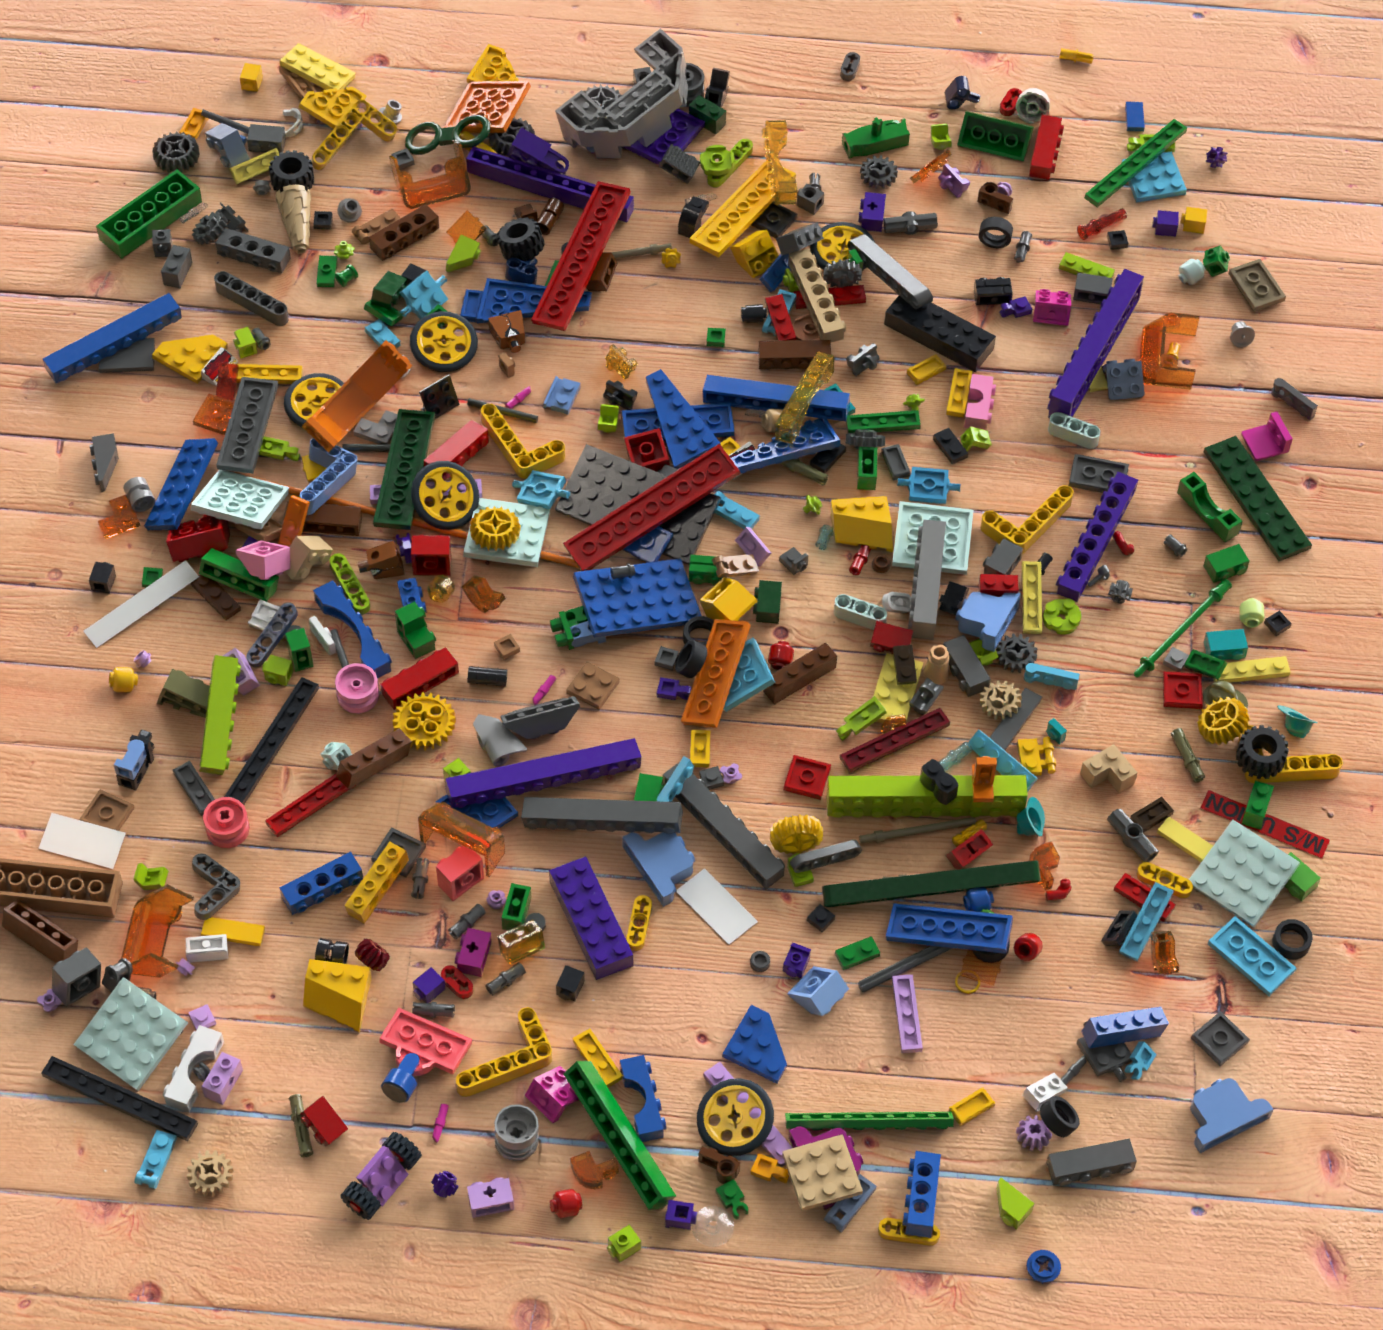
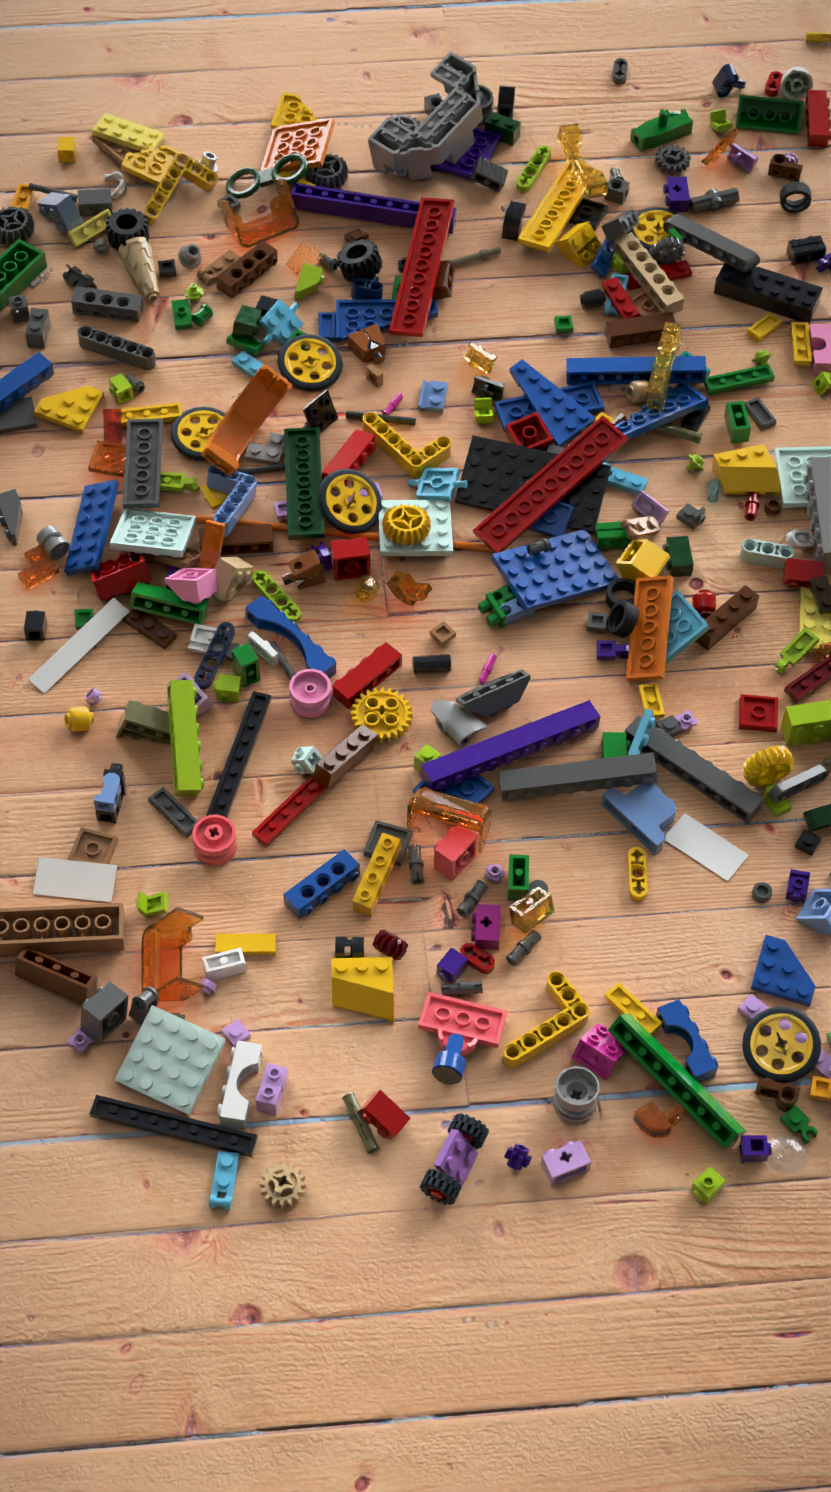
camera: 10 degrees left, 0 degrees up
(201, 1071) = (250, 1086): dark grey bush -> none
(209, 228) = (61, 288): dark grey gear -> none
(211, 369) = (95, 418): slope -> none
(220, 886) = (223, 902): dark grey beam -> none
(411, 592) = (342, 601): blue bracket -> none
(413, 630) = (350, 632): green brick -> none
(440, 1122) = (495, 1097): dark pink piece -> none
(536, 152) = (356, 178): dark purple brick -> none
(550, 215) = (380, 234): reddish brown pin -> none
(566, 1203) = (641, 1156): red head -> none
(570, 983) = (587, 942): black brick -> none
(591, 918) = (591, 876): dark purple brick -> none
(592, 685) = (533, 657): medium nougat plate -> none
(671, 258) = (502, 259): yellow plant -> none
(719, 152) = (530, 169): lime plate -> none
(865, 359) = (706, 326): dark grey hips -> none
(865, 438) = (728, 394): dark grey gear -> none
(928, 485) = (796, 430): dark azure plate -> none
(950, 446) = (805, 392): black plate -> none
(1023, 246) = (821, 207): dark grey axle -> none

